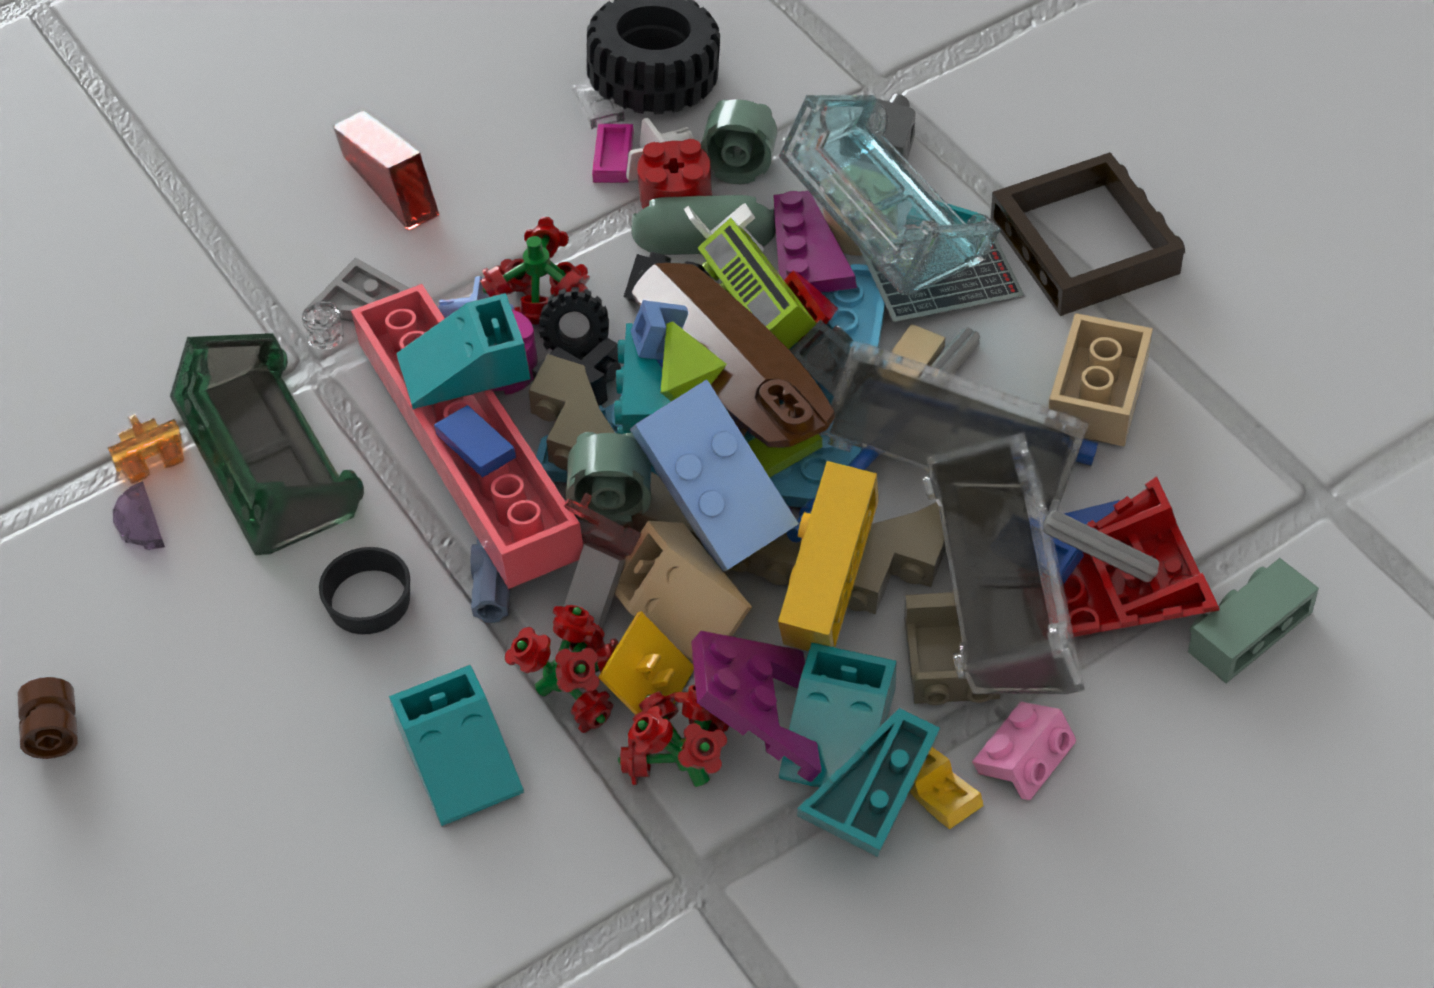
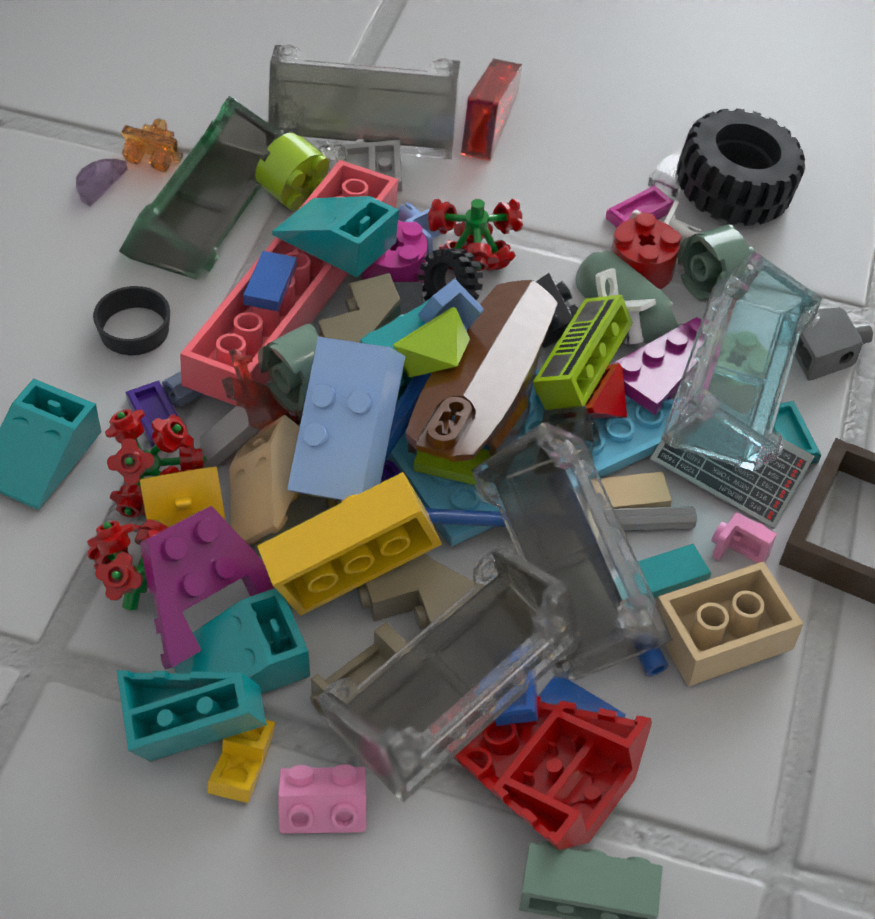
camera: 45 degrees right, 0 degrees up
(290, 254) = (365, 103): none -> windscreen
(317, 356) = (292, 170): none -> lime brick
(486, 637) = (154, 403): none -> dark purple tile
(1013, 374) = (674, 570): none -> teal tile
(1026, 315) = (744, 537): none -> bright pink bracket
(1100, 546) = (538, 720): light grey axle -> none

